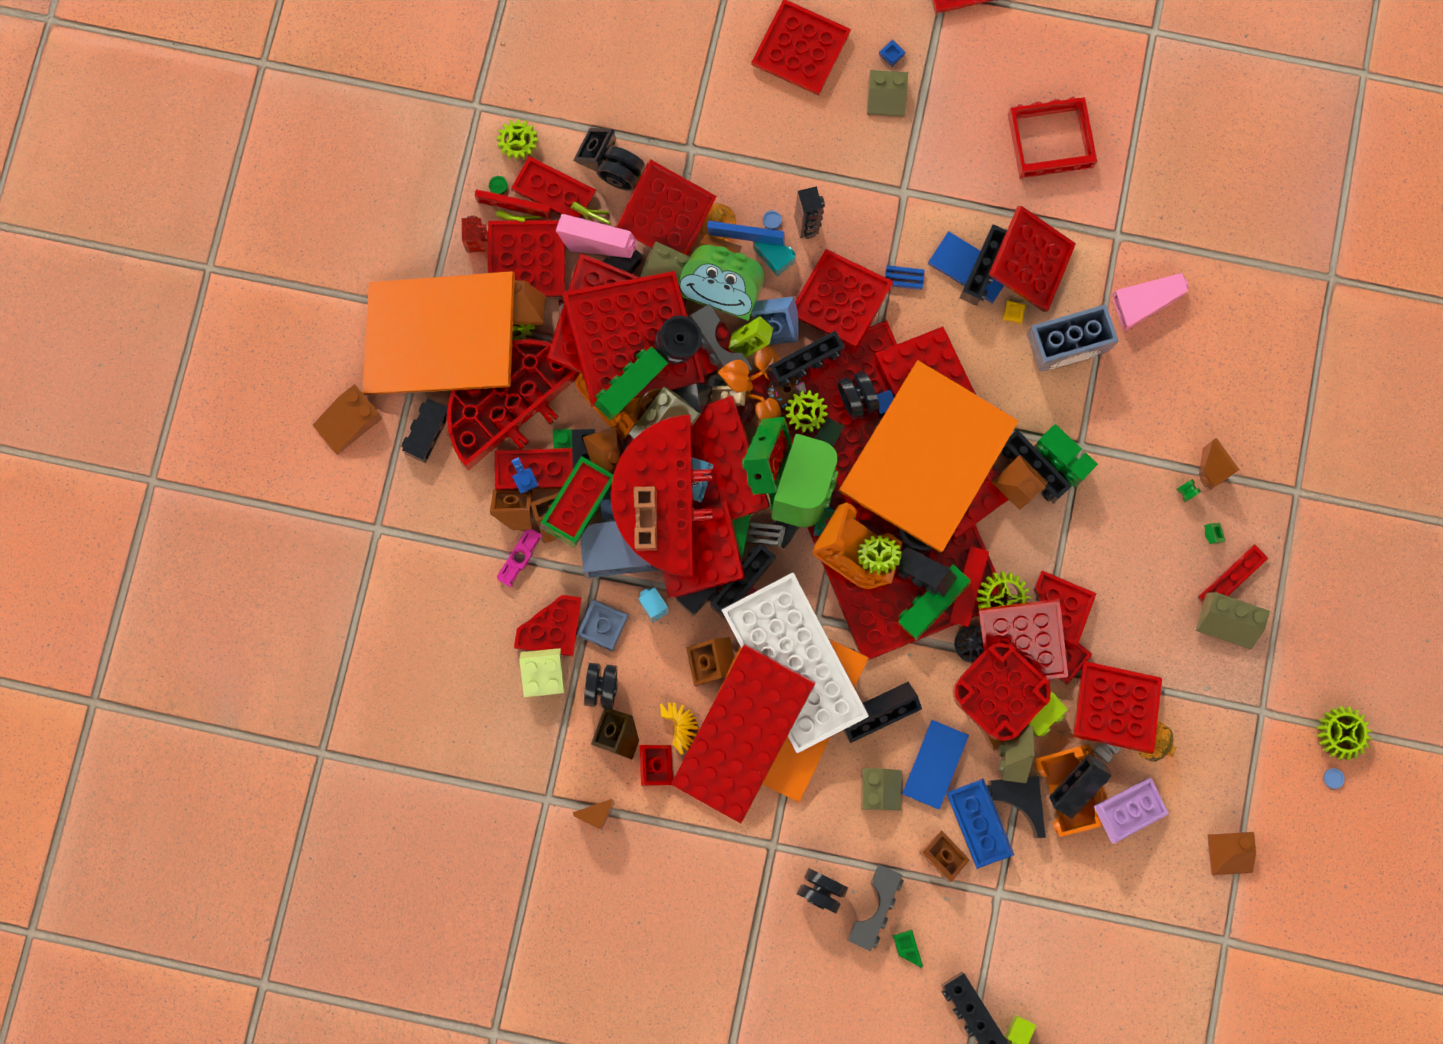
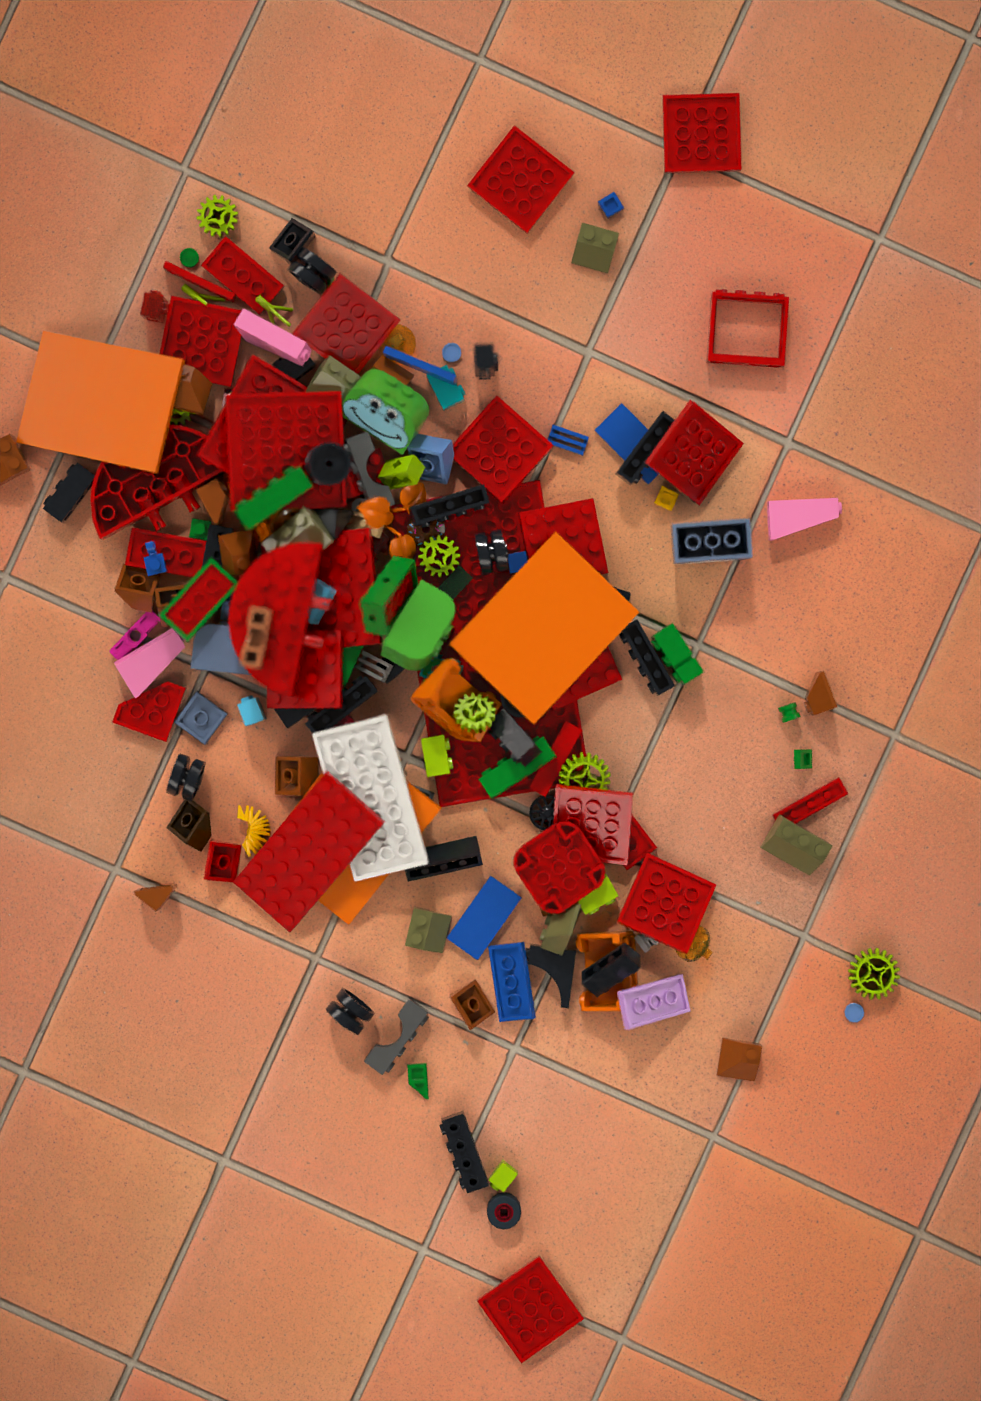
camera: 10 degrees right, 10 degrees up
(536, 580) = (149, 660): none -> bright pink slope
(542, 672) = (133, 752): yellowish green brick -> none
(571, 404) = (215, 500): none -> dark orange slope
(849, 608) = (436, 756): none -> lime brick
(1020, 482) = (627, 671): dark orange slope -> none
(1074, 603) = (649, 795): red plate -> none

